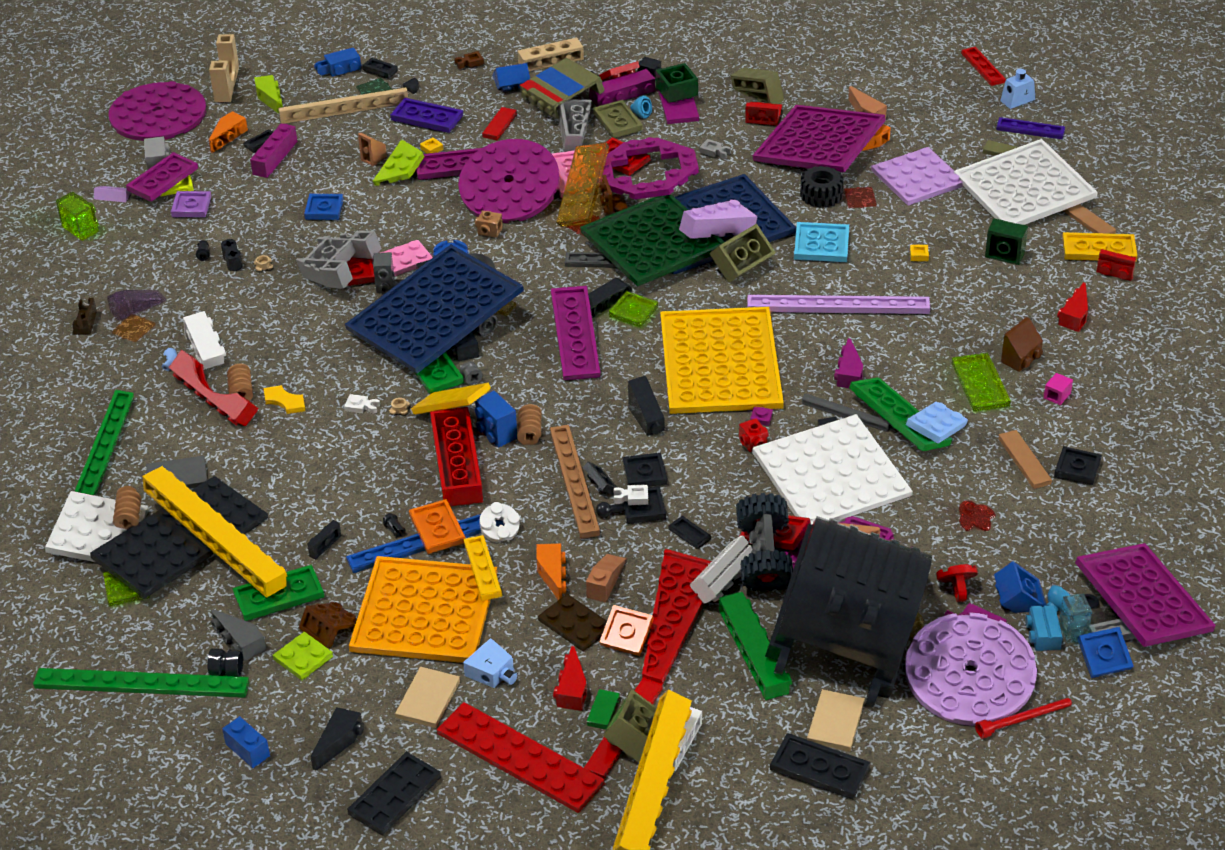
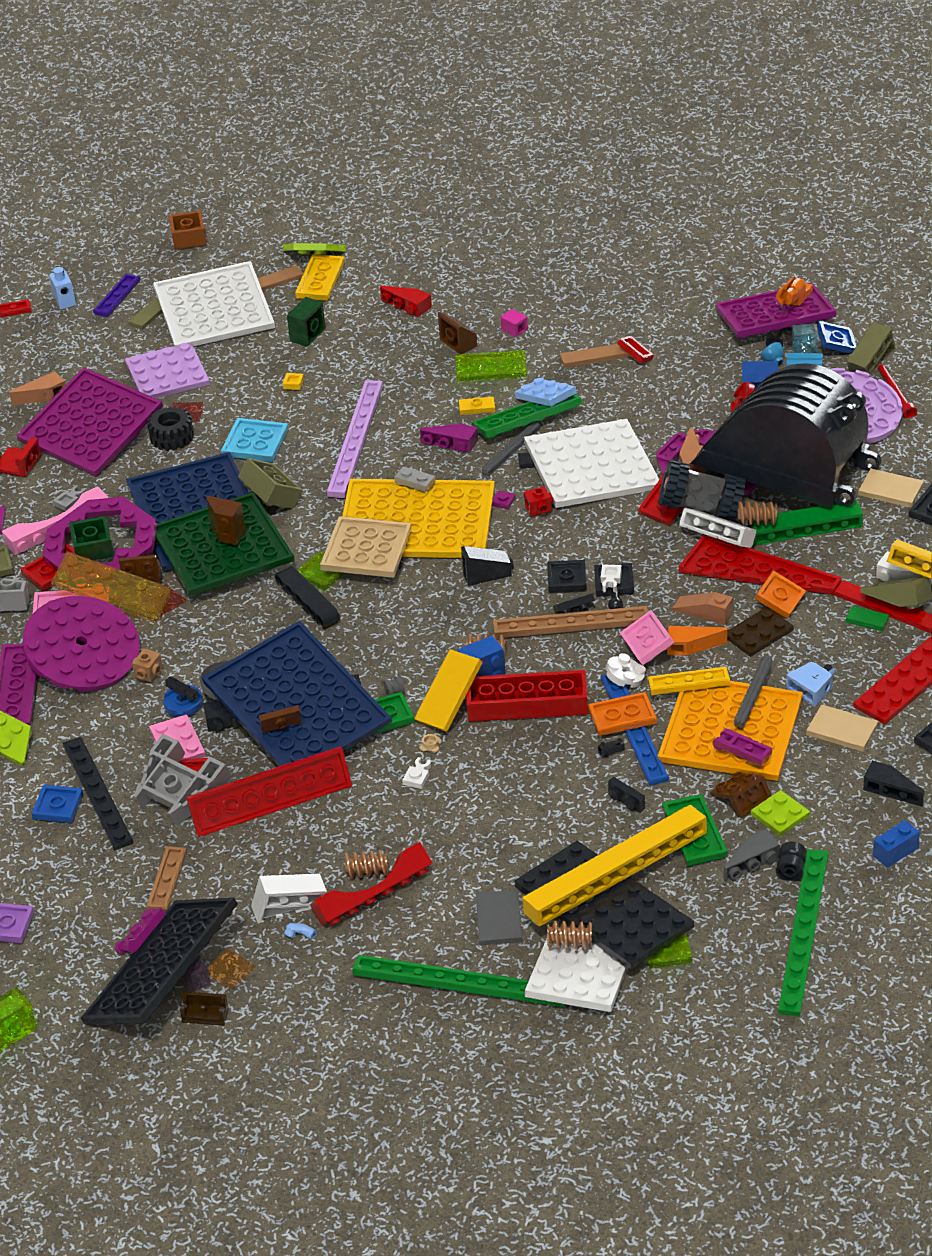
camera: 80 degrees left, 0 degrees up
(126, 280) = (159, 962): none -> black plate
(173, 271) = (140, 931): none -> magenta plate
(202, 252) = (105, 909): black pin -> none
(231, 255) = (127, 879): black axle -> none
(236, 278) = (166, 878): none -> medium nougat tile
(263, 263) = (147, 854): tan plate -> none
(289, 402) = (400, 828): yellow tile -> none
(327, 314) = (269, 791): none -> red plate
(339, 226) = (97, 793): none -> black plate
(381, 612) = (742, 746): none -> magenta plate
(383, 272) = (216, 741): dark grey brick -> none
(398, 296) = (279, 719): none -> reddish brown plate
(461, 241) = (181, 688): none -> black axle
(466, 615) = (753, 691): none -> dark grey axle
(544, 531) = (647, 637): none -> bright pink plate
(572, 684) = (838, 631): red slope -> none
(575, 333) = (360, 604): magenta plate -> none
(587, 259) = (226, 600): dark grey tile -> none
(630, 155) = (92, 538): none -> dark green brick
(659, 326) = (366, 546): none -> tan plate
(660, 223) = (226, 519): none -> reddish brown slope
(689, 532) = (652, 555): black tile -> none
(708, 160) = (26, 535): none -> bright pink arch
(717, 220) = (220, 483): lavender wedge -> none
(735, 589) = (757, 513): none -> medium nougat piece
(771, 346) = (414, 479): none -> light grey plate
(913, 381) = (476, 405): none -> yellow plate
(975, 515) = (660, 388): clear red plate -> none
(1037, 486) = (635, 349): none -> red tile
(1078, 465) = (612, 326): black plate -> none
(1085, 682) = (871, 349): none -> olive wedge
(1116, 264) = (356, 268): red plate -> none
(1142, 148) = (187, 230): none -> dark orange brick
(1143, 233) = (318, 248): none -> lime wing
(1166, 598) = (794, 292): none -> orange plate

